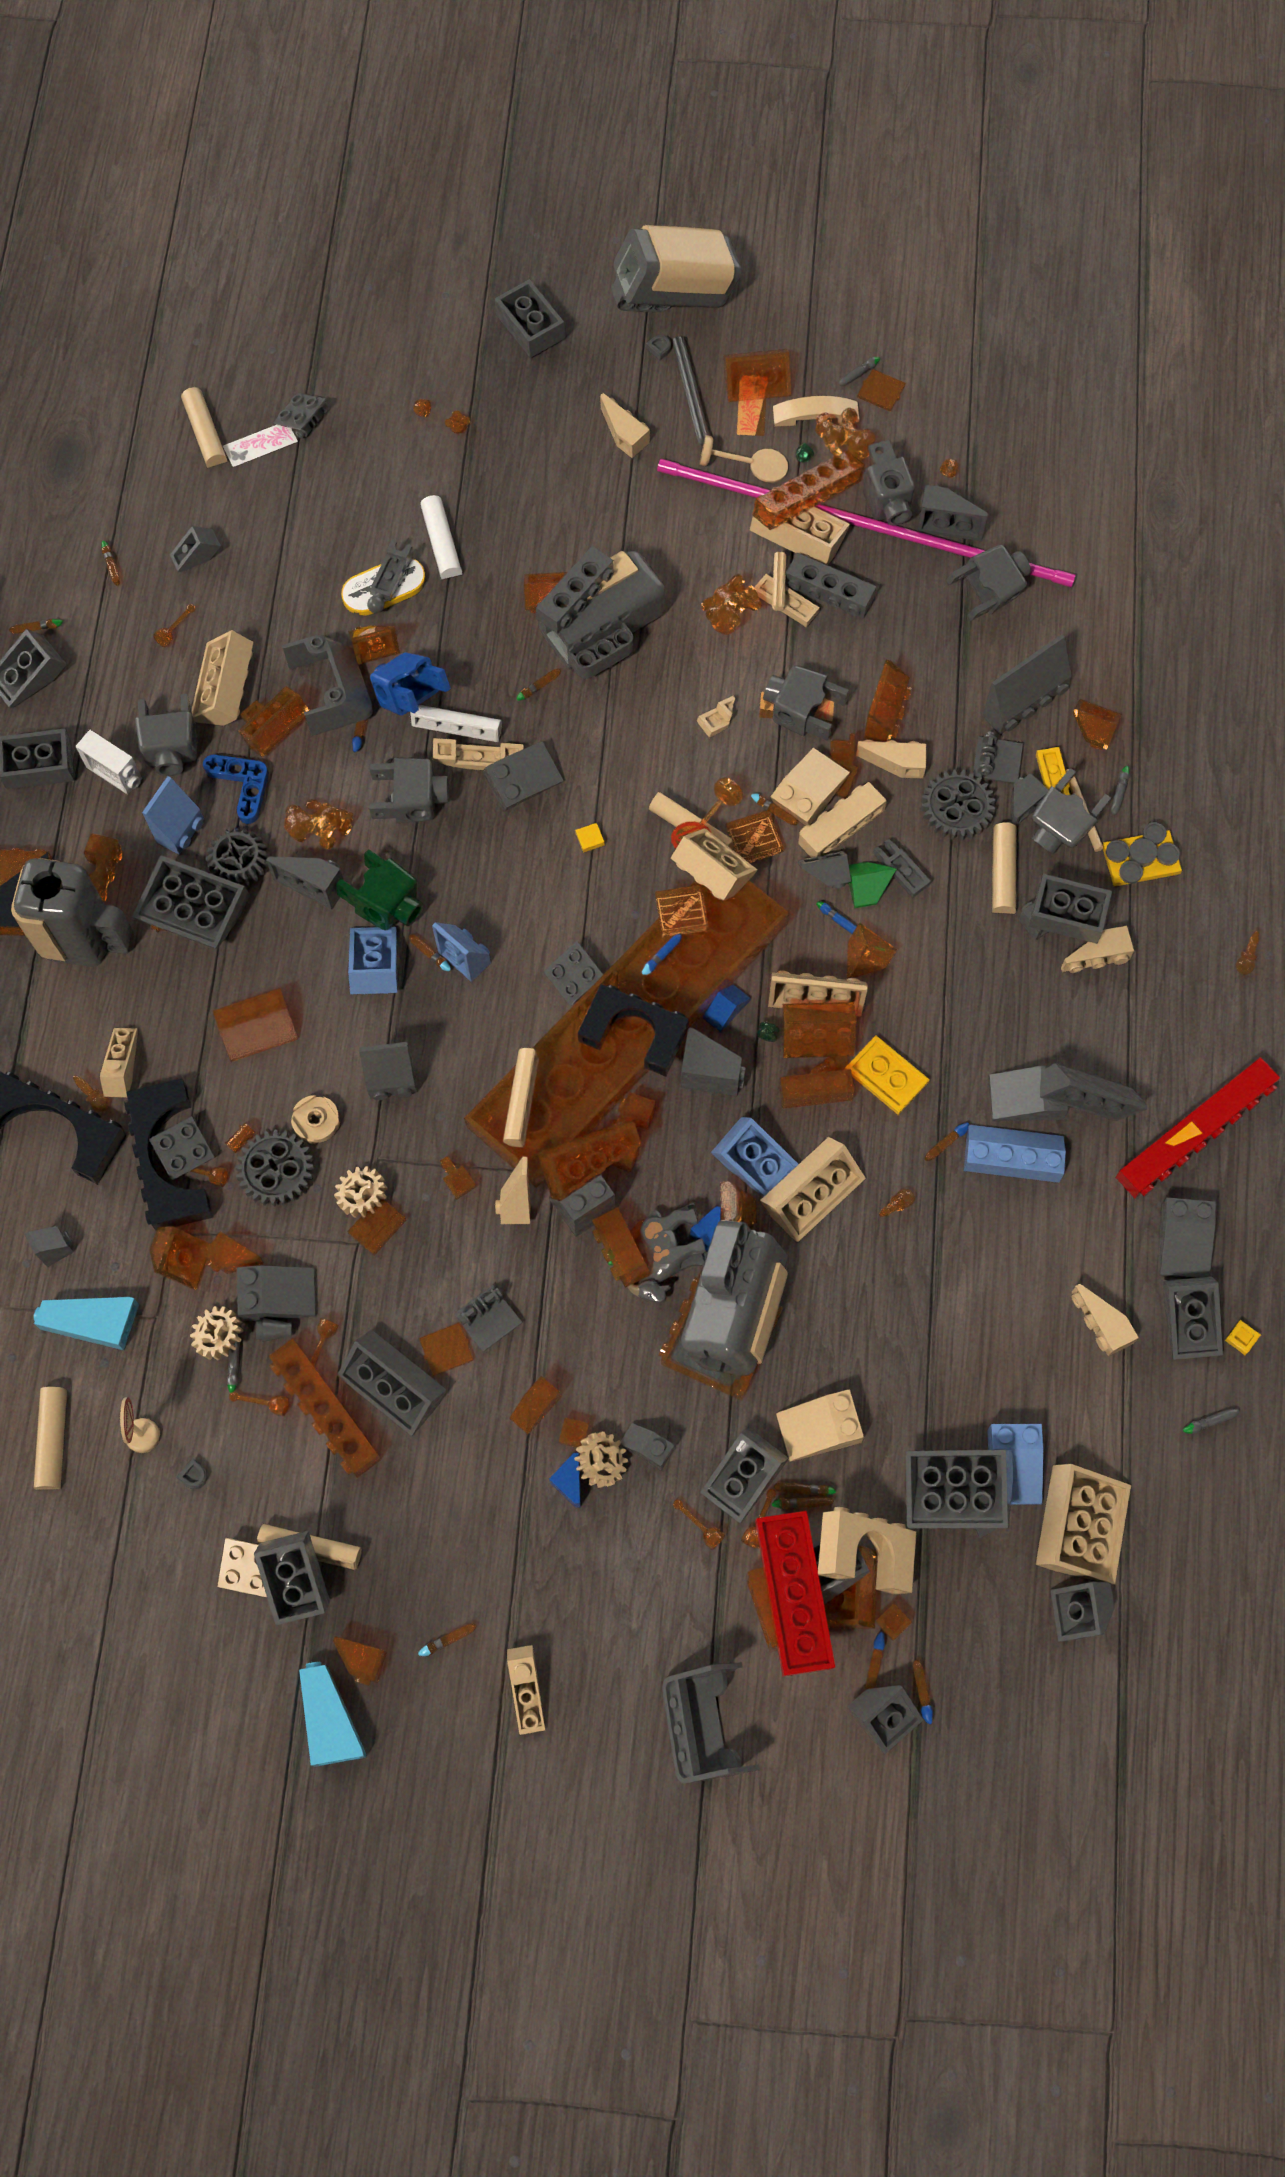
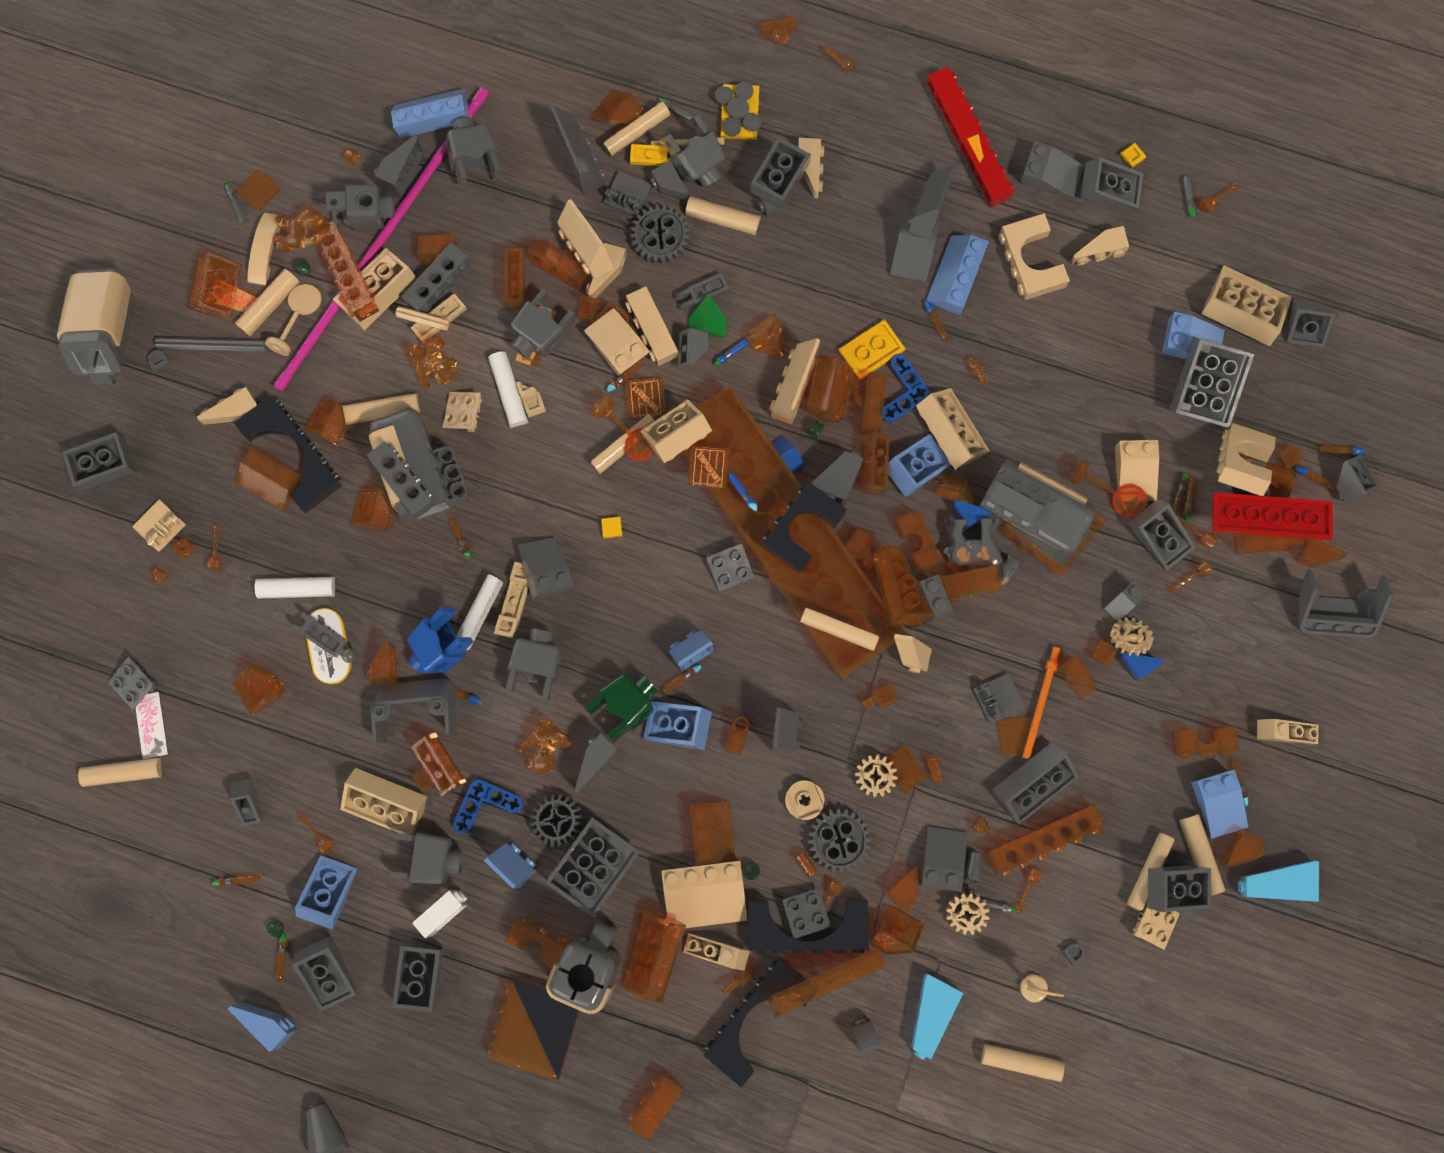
camera: 75 degrees left, 10 degrees up
(62, 614) = (277, 932): none -> clear green hinge
(101, 993) = (653, 956): none -> clear orange slope
(101, 1182) = (826, 982): none -> clear orange brick
(112, 648) = (325, 892): none -> medium blue slope
(183, 1032) = (705, 894): none -> tan slope
(213, 1079) = (753, 865): none -> clear green bush
(320, 530) = (258, 688): none -> clear orange slope
(345, 1610) = (1201, 850): none -> tan brick
(374, 1027) = (737, 738): none -> clear orange piece
(383, 1259) = (935, 769): none -> clear orange pin
(413, 1619) = (1221, 803): none -> medium blue slope
(449, 454) = (214, 562): none -> clear orange hinge
(476, 394) = (159, 525): none -> tan hinge
(493, 1605) = (1222, 741): none -> clear orange arch
(541, 1370) = (1051, 667): none -> orange bar
(555, 481) = (267, 478): none -> clear orange slope
(569, 527) = (317, 479): none -> black arch
(630, 520) = (328, 422): none -> clear orange slope
(644, 1192) = (914, 526): none -> clear orange arch
(664, 567) = (379, 408): none -> tan brick
(684, 649) = (462, 410): none -> tan hinge
(732, 685) = (508, 389): none -> white brick
(741, 1104) = (875, 464): none -> clear orange brick
(754, 430) = (267, 302): none -> tan brick
(769, 1684) = (1318, 553): none -> clear orange slope
(780, 1422) = (1127, 500): none -> clear orange piece
(851, 1131) = (911, 389): none -> blue beam
(854, 662) = (514, 278): none -> clear orange brick
(867, 569) = (432, 245): none -> clear orange slope
(917, 719) = (583, 241): none -> tan slope
(1025, 529) = (429, 113): none -> medium blue slope
(1080, 748) = (636, 129): none -> tan brick
(1081, 1211) = (1030, 281): none -> tan arch
(1208, 1446) = (1208, 203): none -> clear orange hinge
(1261, 875) = (778, 29): none -> clear orange tile

